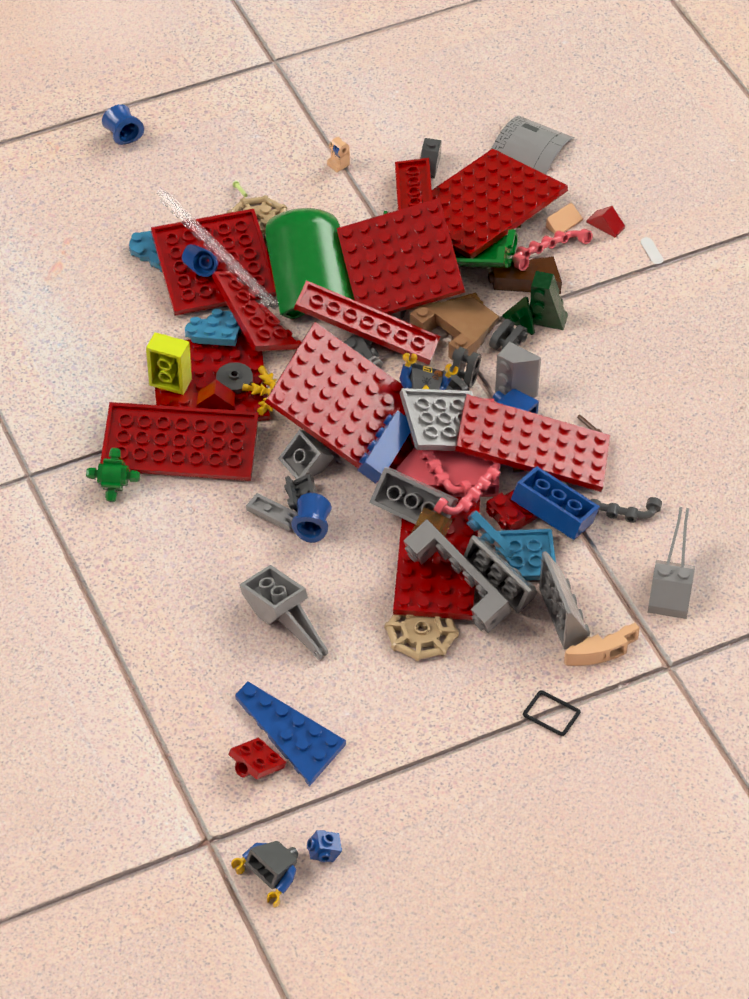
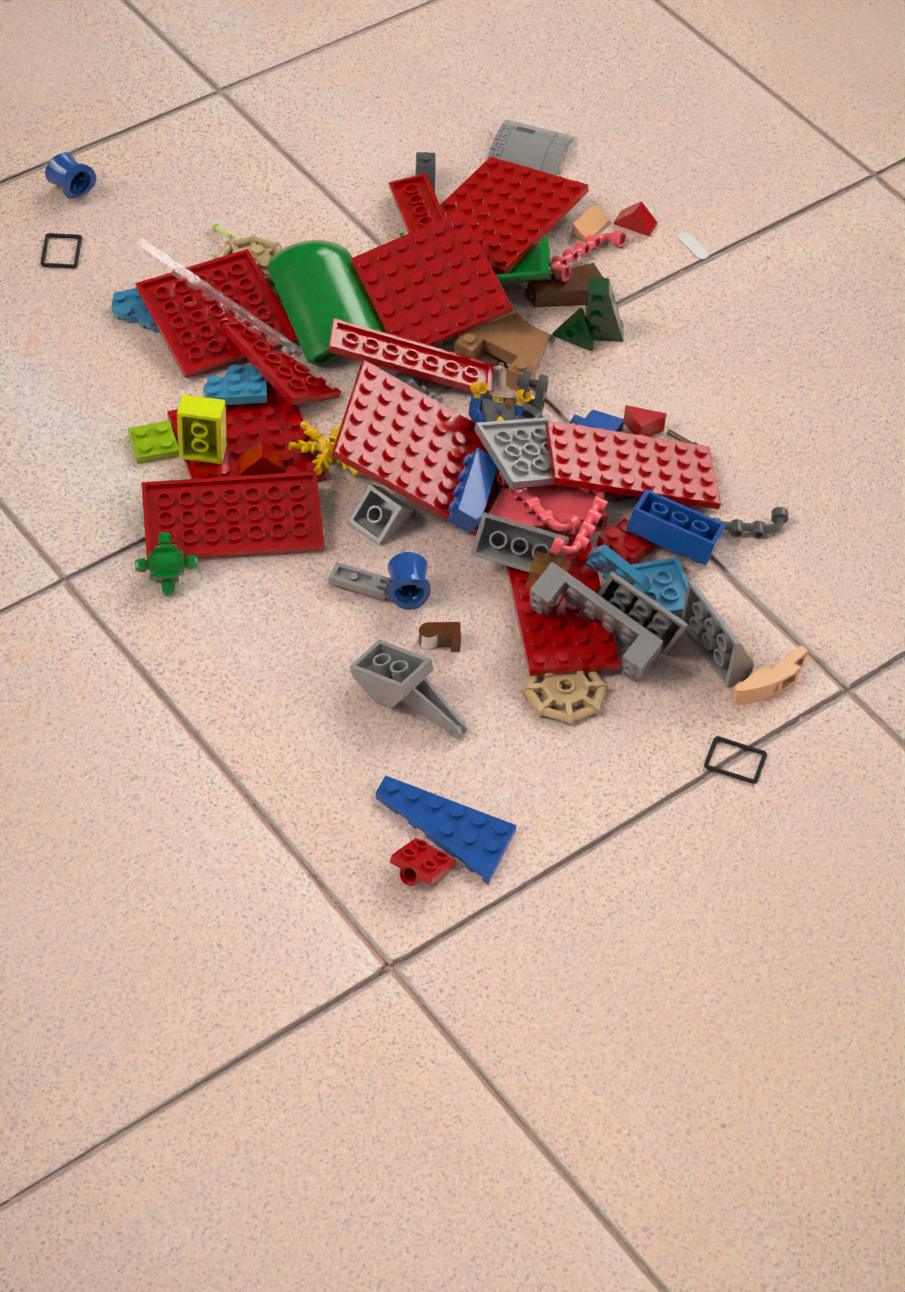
camera: 15 degrees left, 0 degrees up
(88, 184) = (61, 236): none -> black piece
(131, 368) = (153, 442): none -> lime plate
(197, 260) = (198, 310): blue cap -> none
(234, 375) = (277, 435): dark grey plate -> none
(272, 864) = (474, 979): dark grey torso -> none
(298, 488) = (383, 551): dark grey bracket -> none
(324, 846) = (529, 949): blue brick -> none
(327, 568) = (440, 635): none -> reddish brown leg
(339, 155) = (325, 181): light nougat leg -> none
(507, 333) = (573, 363): dark grey brick -> none
(517, 370) = (595, 388): light grey slope -> none
(558, 405) = (644, 421): none -> red slope
(672, 581) = (827, 598): light grey slope -> none

